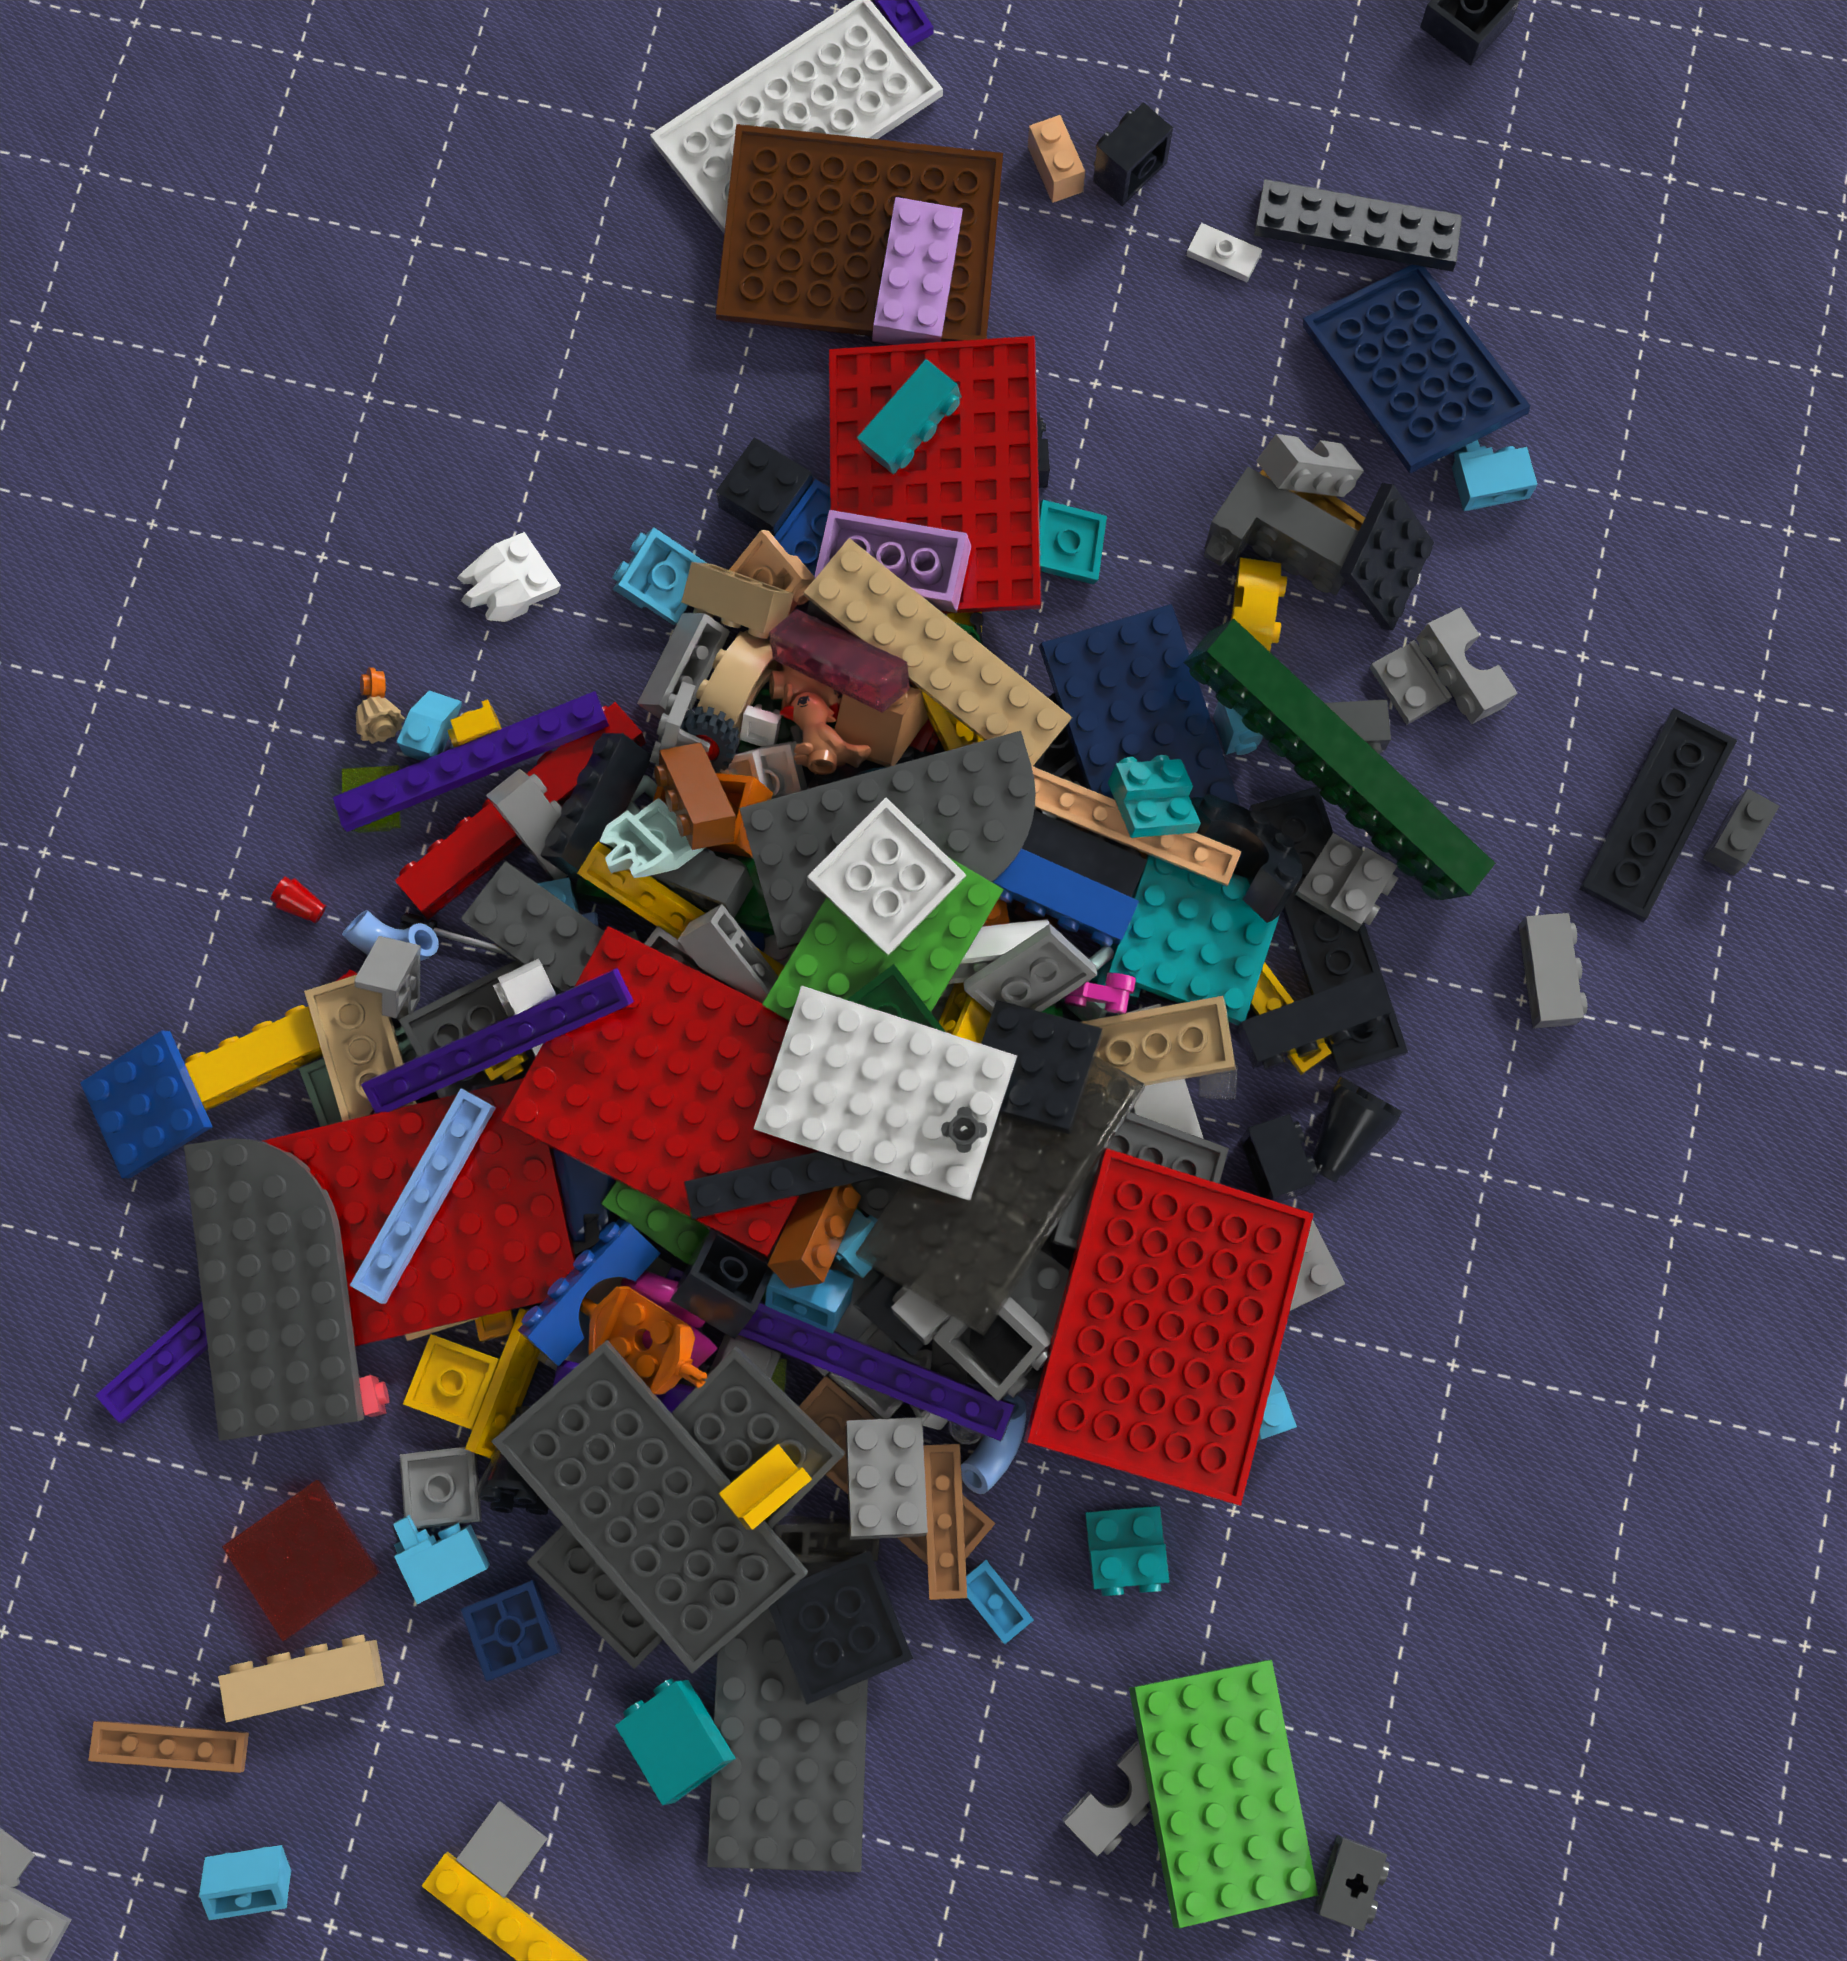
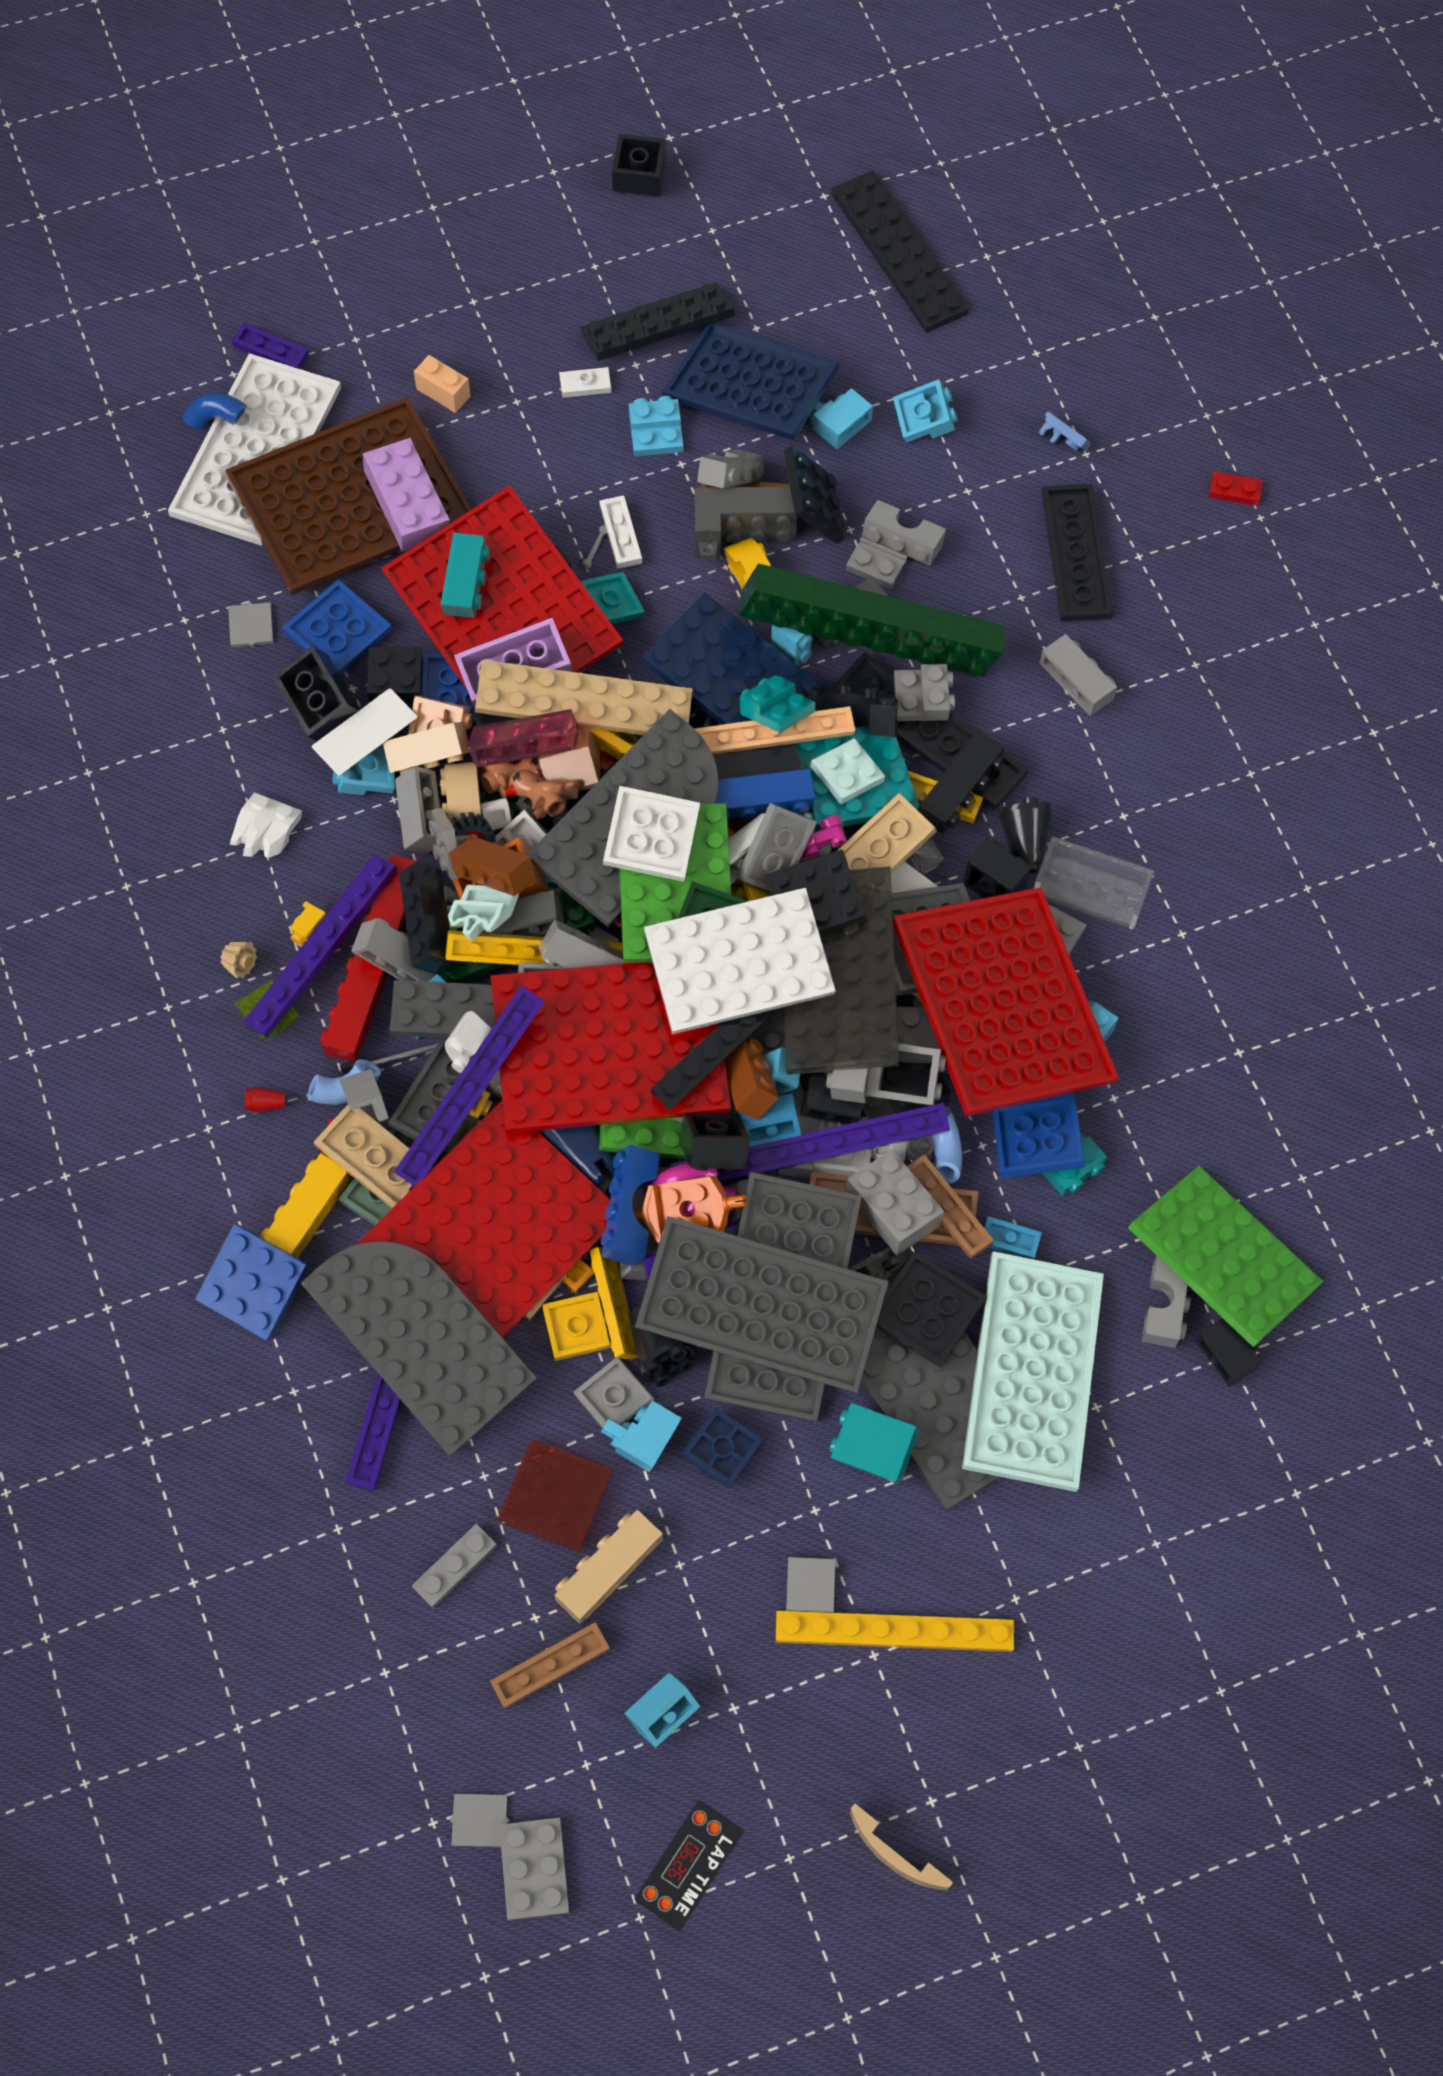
camera: 35 degrees left, 10 degrees down
(148, 1564) = (454, 1566): none -> light grey plate
(373, 683) = (218, 939): orange plate -> none
(373, 1395) = (534, 1363): coral plate -> none
(422, 1196) = (483, 1213): light blue plate -> none
(427, 726) = (275, 944): medium azure slope -> none
(654, 327) = (250, 624): none -> light grey piece
(661, 460) = (316, 693): none -> black brick
(680, 537) = (364, 731): none -> white sticker
(742, 390) = (338, 625): none -> blue plate
(764, 1487) = (827, 1242): yellow panel -> none
(777, 36) = (213, 406): none -> blue cylinder
(908, 1779) = (1033, 1372): none -> light aqua plate
(953, 1129) = (811, 942): dark grey plate -> none
(1104, 1515) = (1038, 1137): none -> blue plate
(1122, 451) = (586, 563): none -> light grey hinge
(1132, 153) = (489, 353): black brick -> none
(1138, 464) = (620, 532): none -> white plate
(1146, 1906) = (1228, 1352): none -> black brick
(1187, 927) = (847, 771): none -> light aqua plate
(1267, 356) = (655, 426): none -> medium azure plate
(1336, 1899) = (1334, 1274): dark grey brick -> none
(1386, 1241) = (1093, 882): none -> clear brick
(1598, 528) = (925, 411): none -> medium azure plate
(1711, 302) = (899, 251): none -> black plate
(1741, 832) = (1131, 533): dark grey brick -> none
(1756, 668) = (1074, 439): none -> medium blue plate

